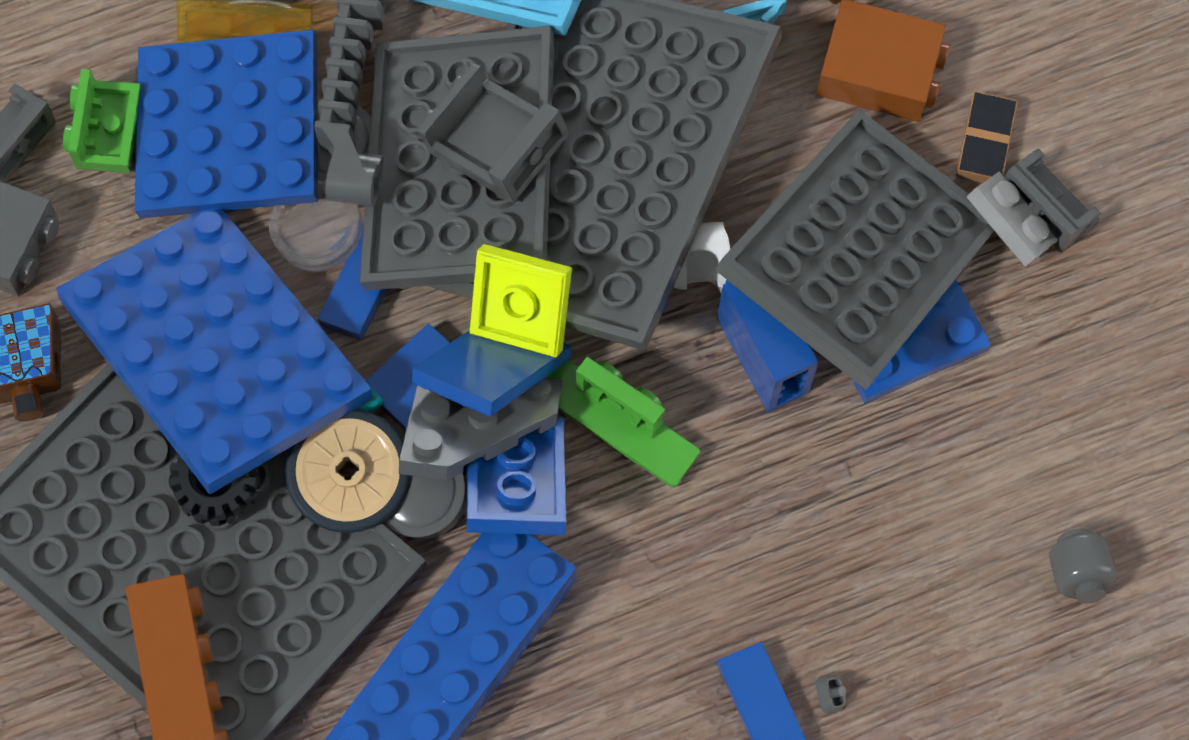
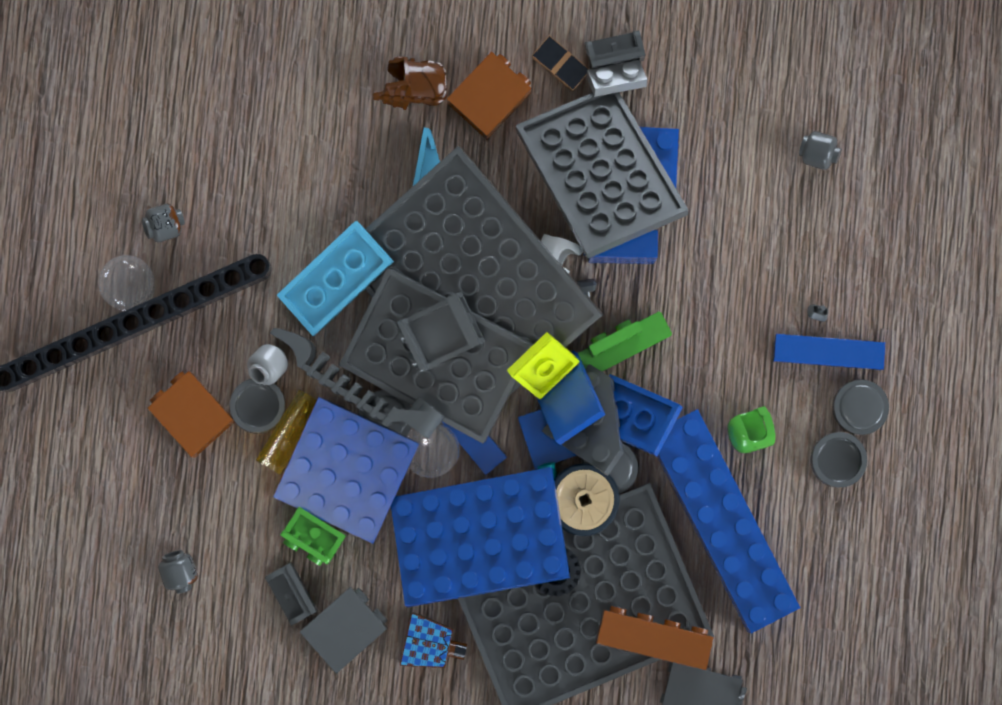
camera: 65 degrees left, 15 degrees up
(585, 673) = (748, 430): none -> bright green helmet
(678, 328) = (587, 286): none -> dark grey rock

